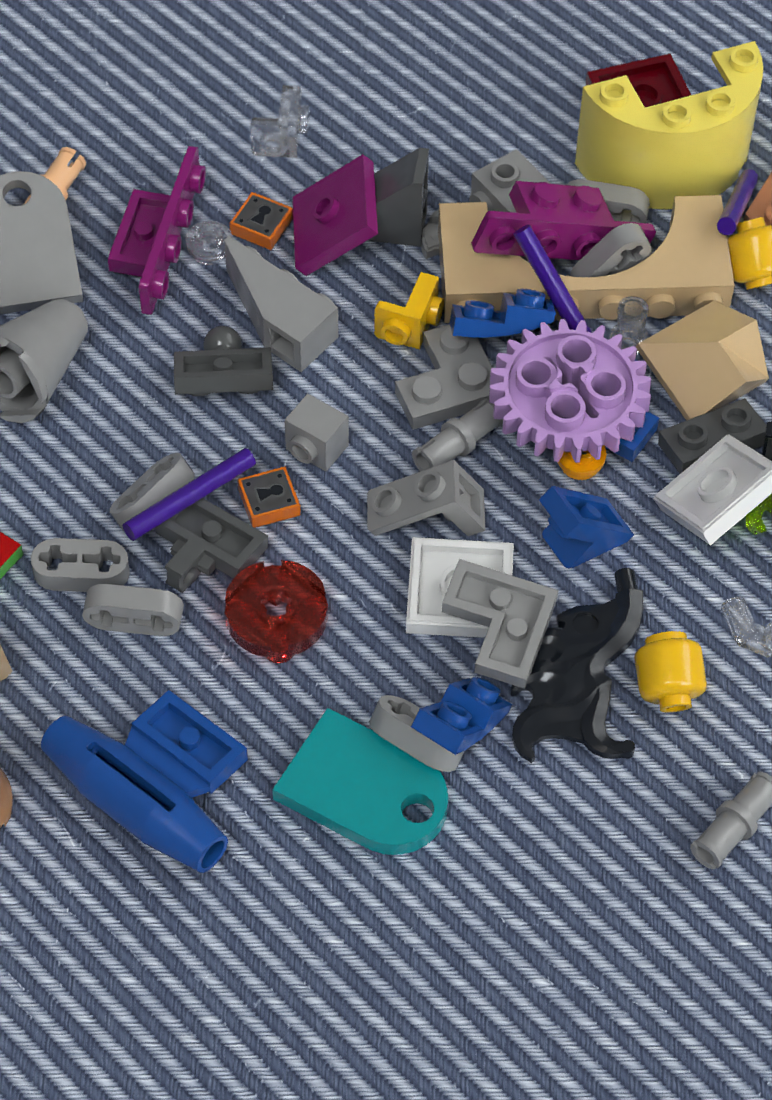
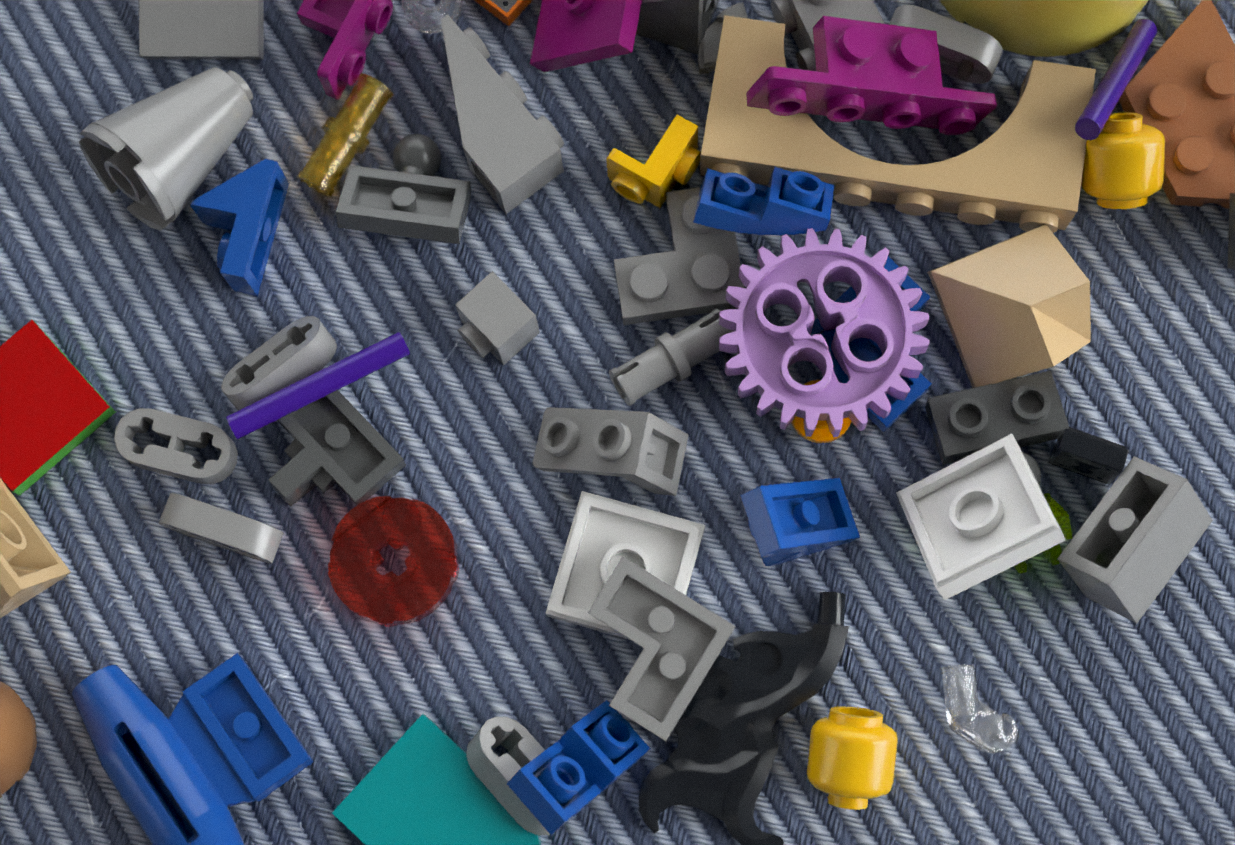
camera: 20 degrees right, 20 degrees up
(98, 397) = (251, 209): none -> blue slope
(164, 335) = (345, 135): none -> clear yellow pin
(269, 497) = (422, 394): tile -> none
(549, 277) = (839, 171): dark purple bar -> none
(615, 252) = (930, 136): light grey beam -> none
(631, 321) = (928, 240): clear pin -> none

